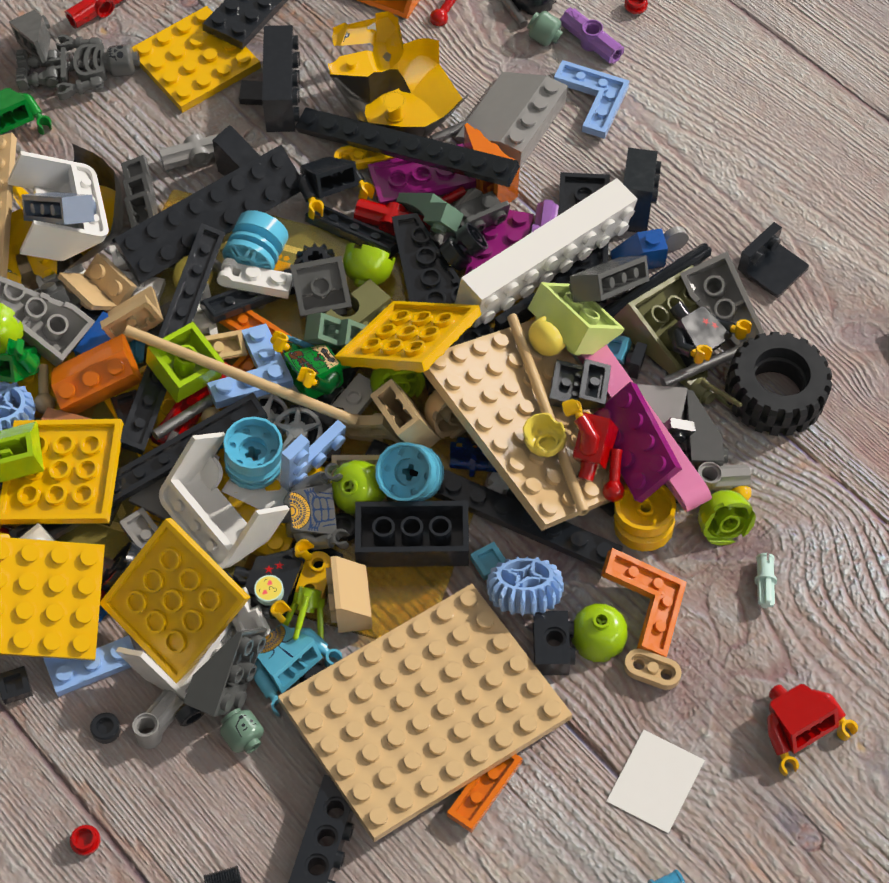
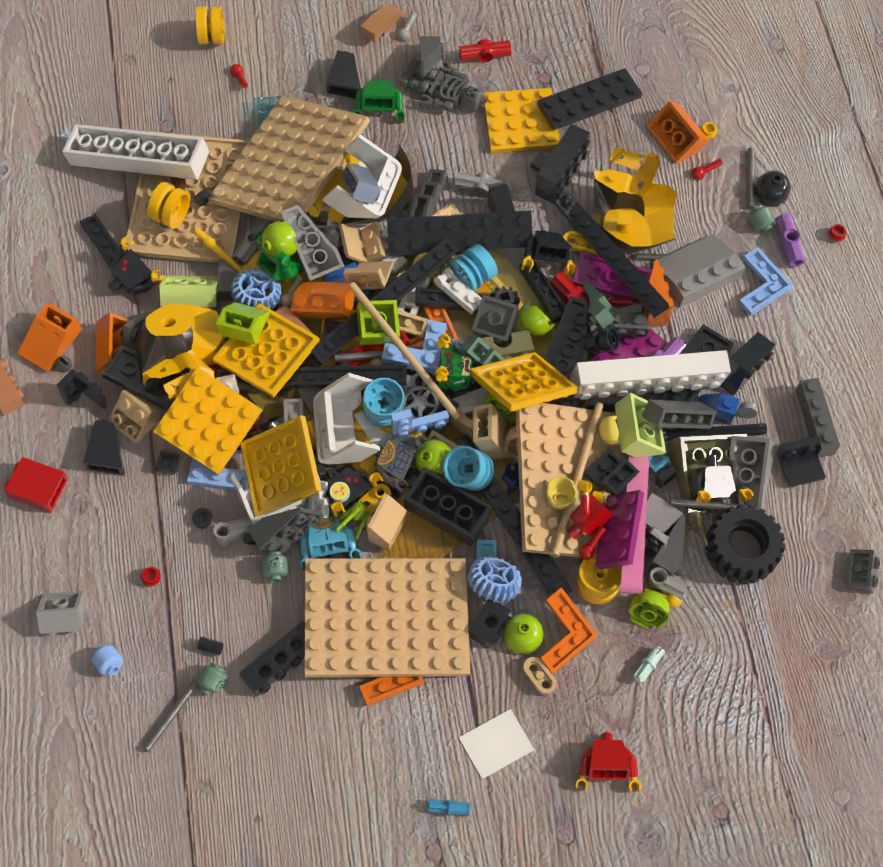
camera: 30 degrees right, 5 degrees up
(754, 203) = (817, 416): none -> dark grey brick

